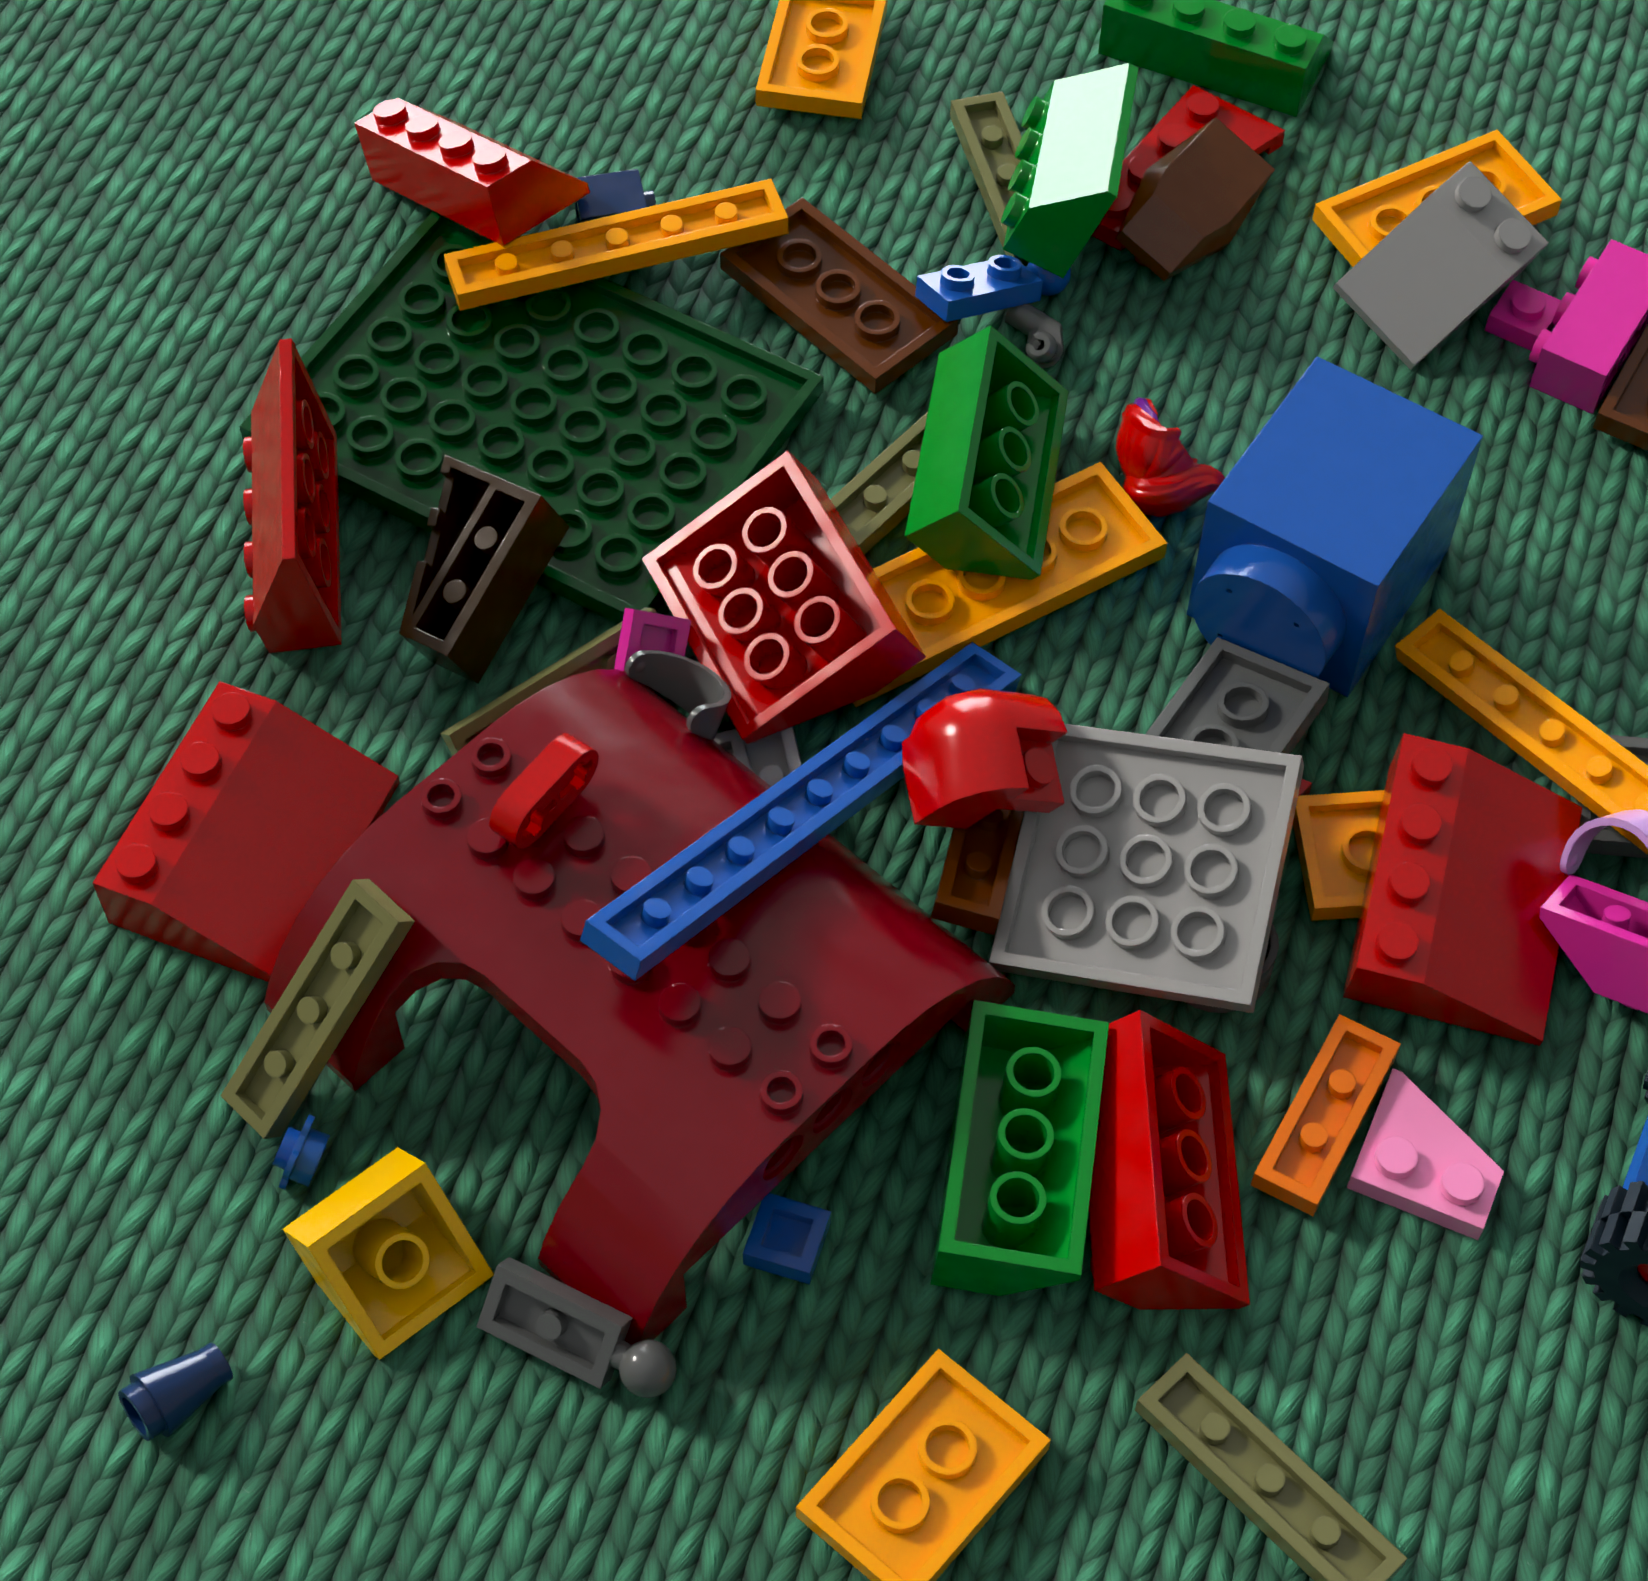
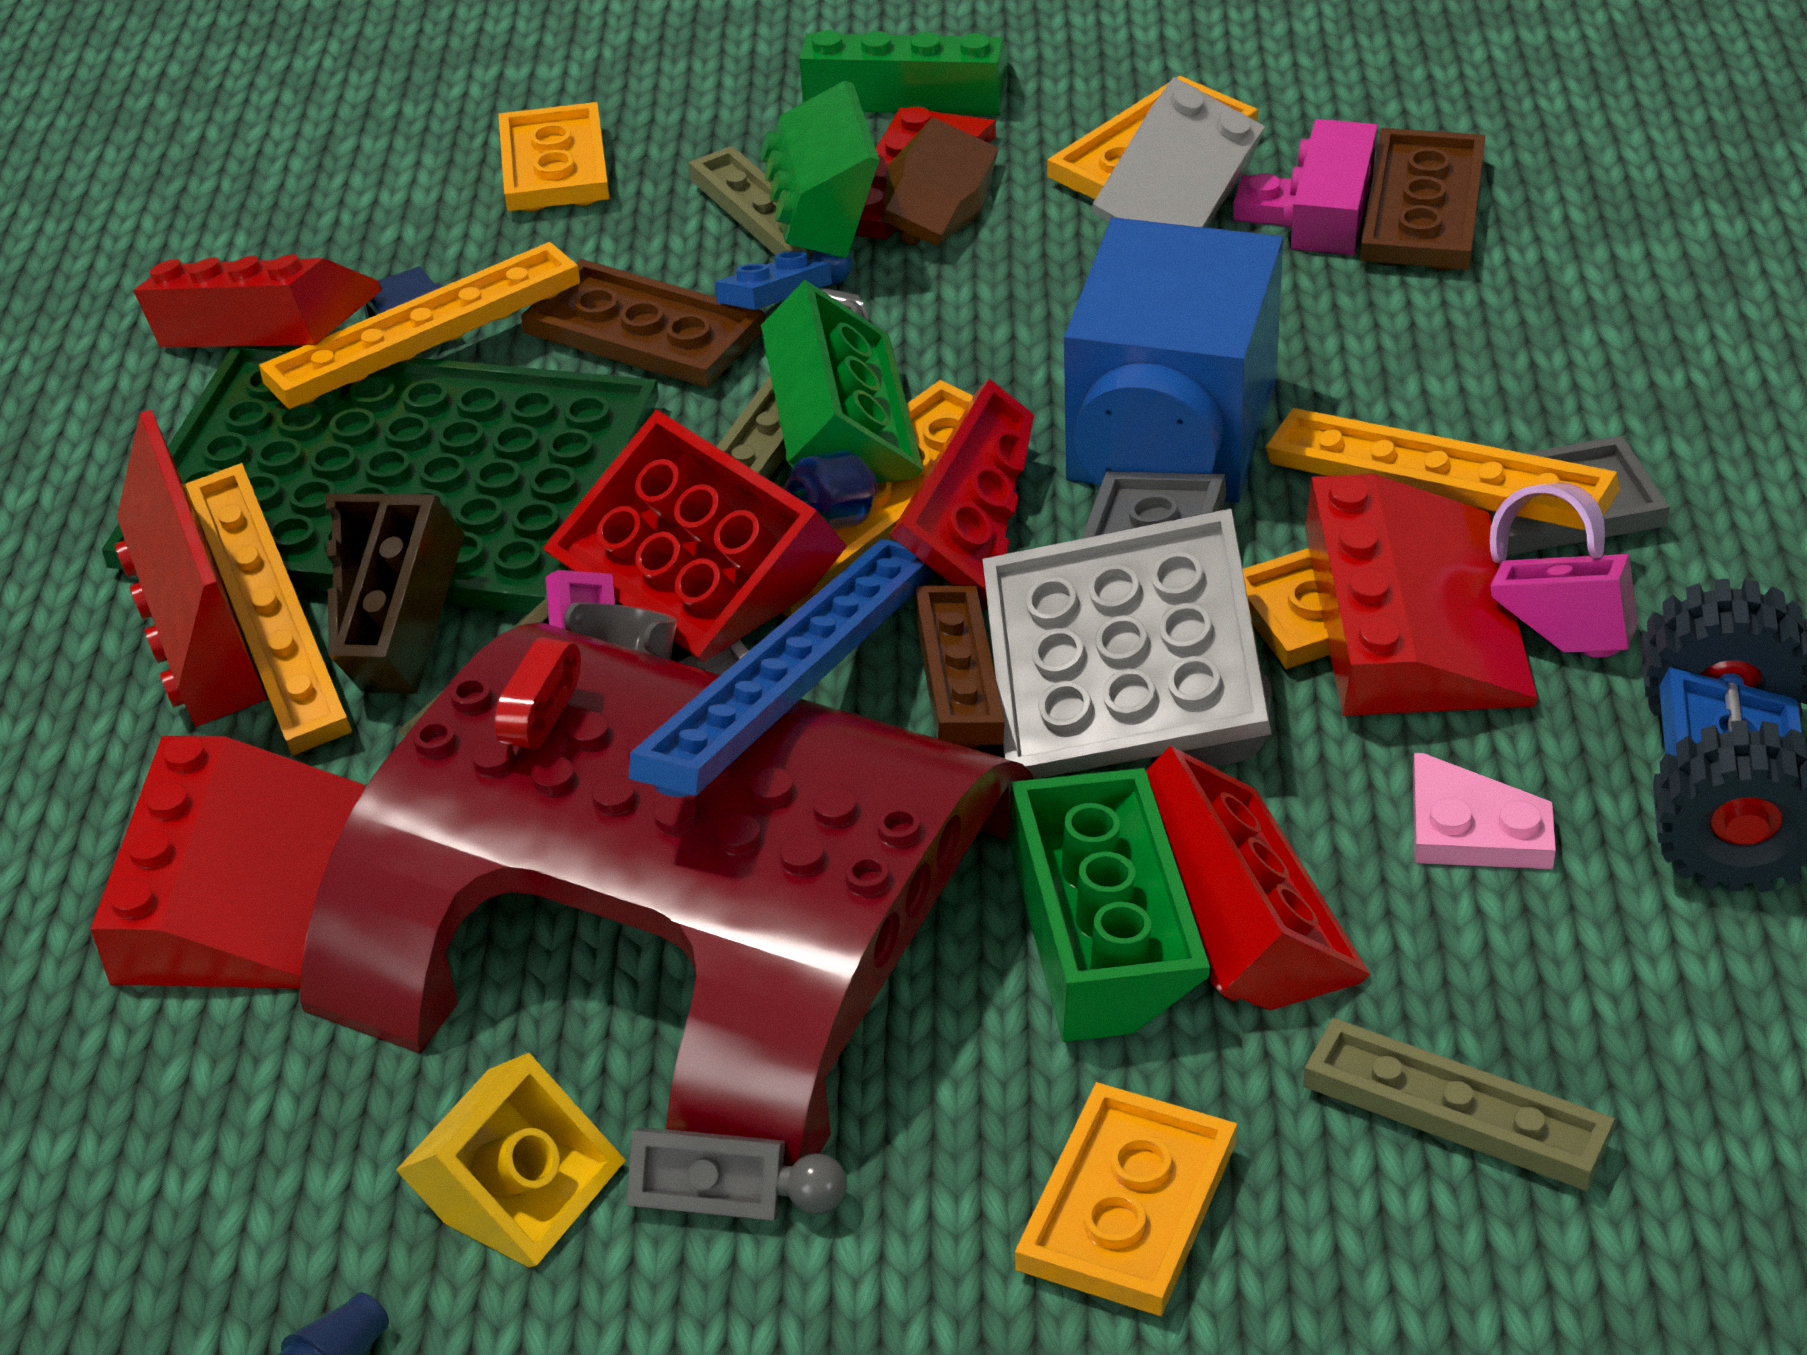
camera: 15 degrees left, 15 degrees down
(300, 1153) = (388, 1108): blue plate -> none
(317, 1008) = (366, 962): olive plate -> none
(365, 550) = (268, 610): none -> light orange plate
(787, 1238) = (907, 1041): blue plate -> none
(935, 582) = (836, 486): none -> clear blue head
(982, 756) = (935, 589): red brick -> none
(1077, 612) = (969, 491): none -> red wing
(1157, 466) = (990, 352): red hair -> none
(1325, 1115) = (1370, 805): orange plate -> none

